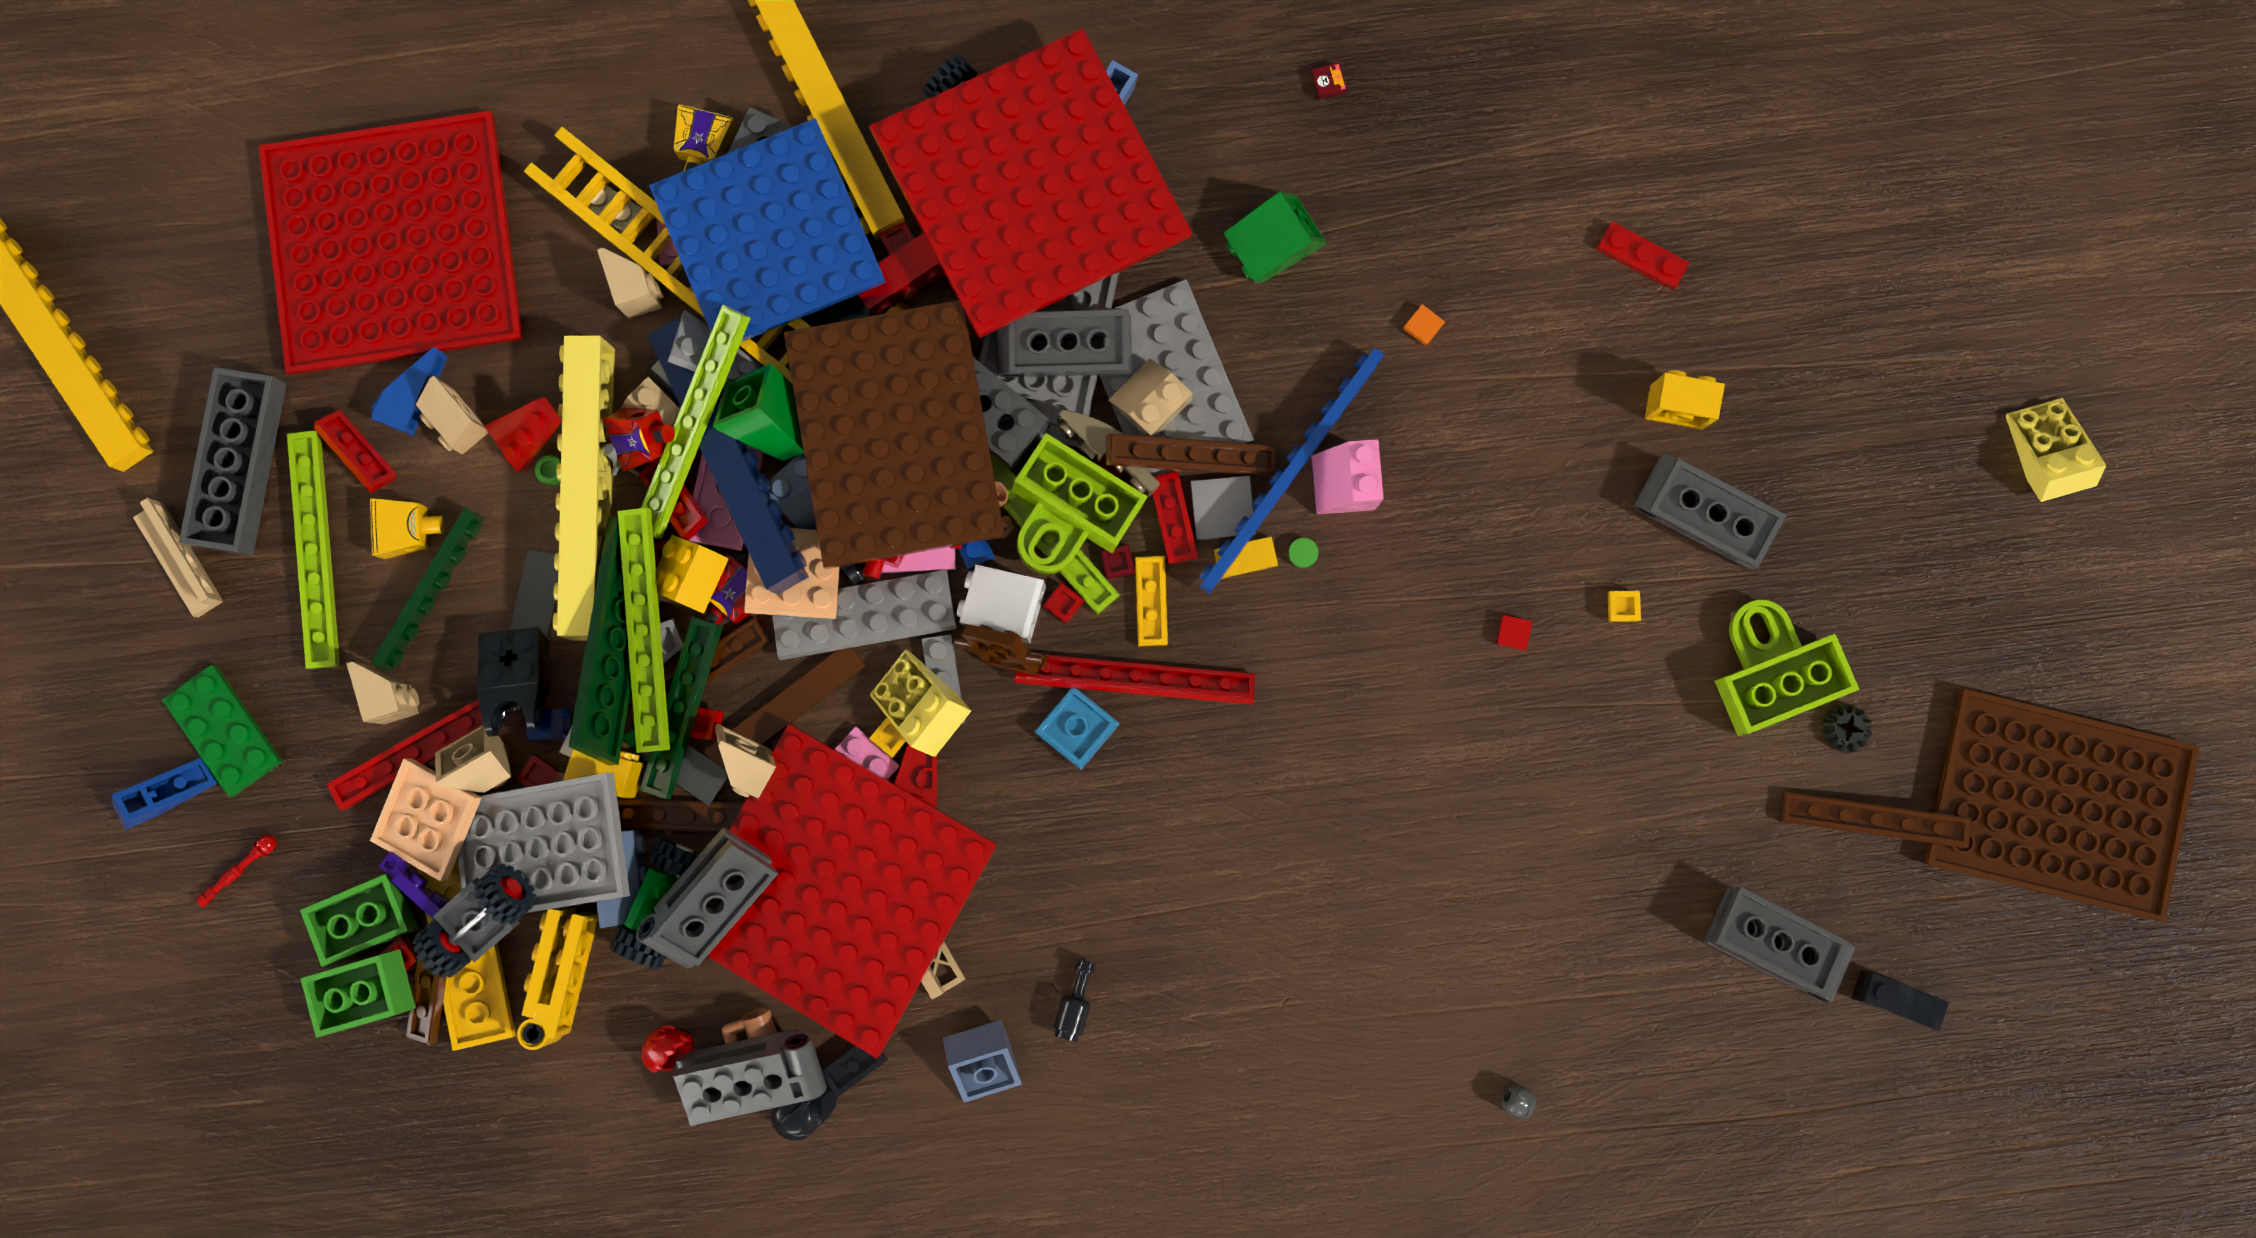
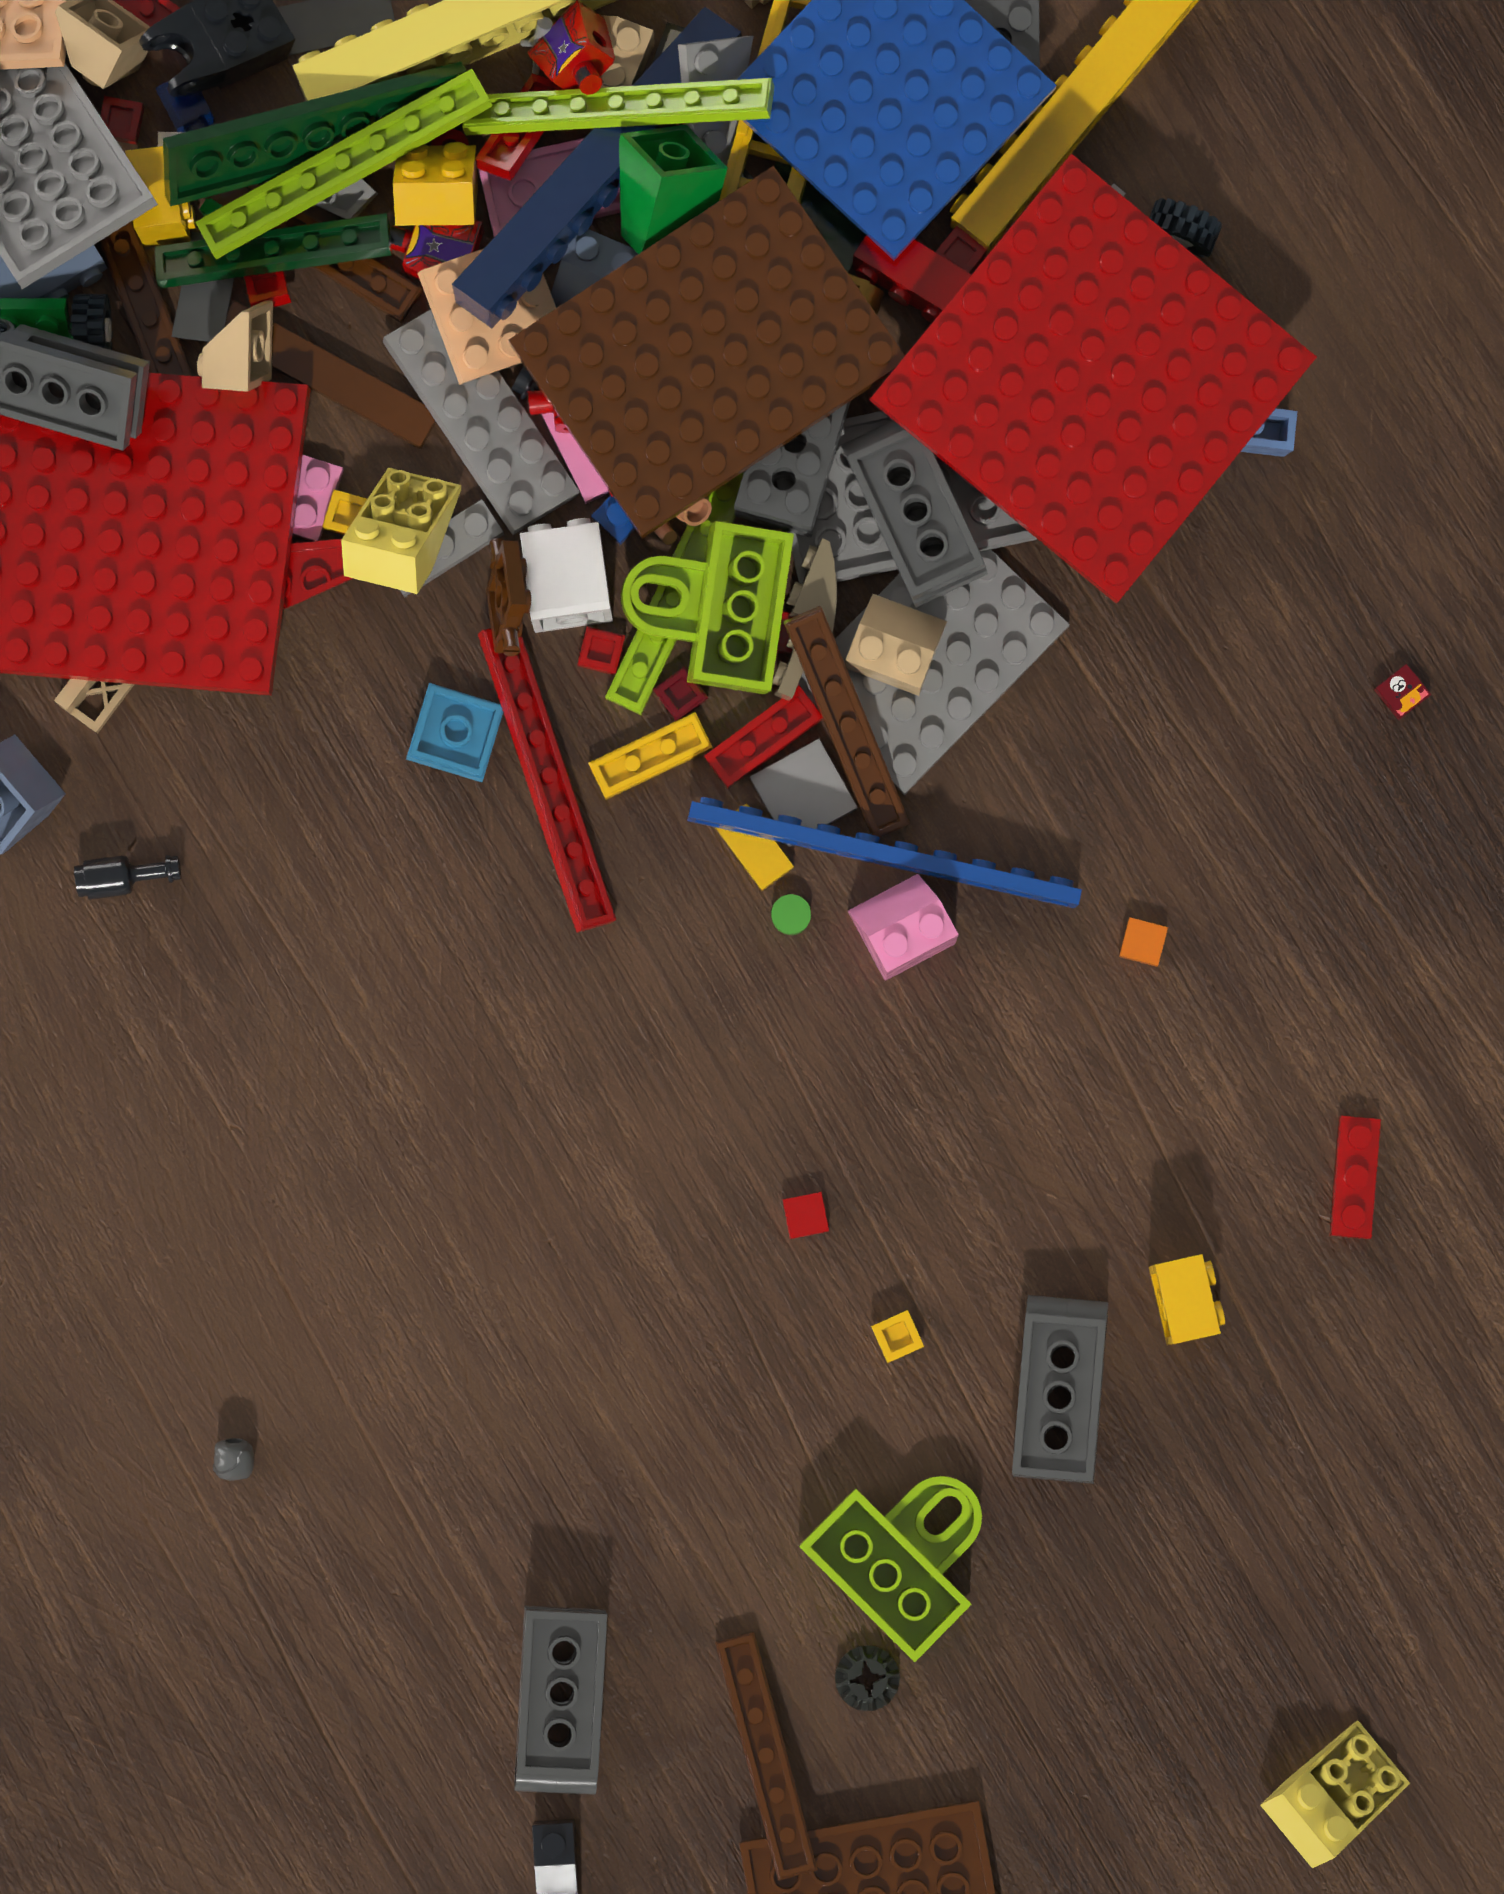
camera: 70 degrees right, 0 degrees up
(1274, 237) = (1169, 709): green slope -> none

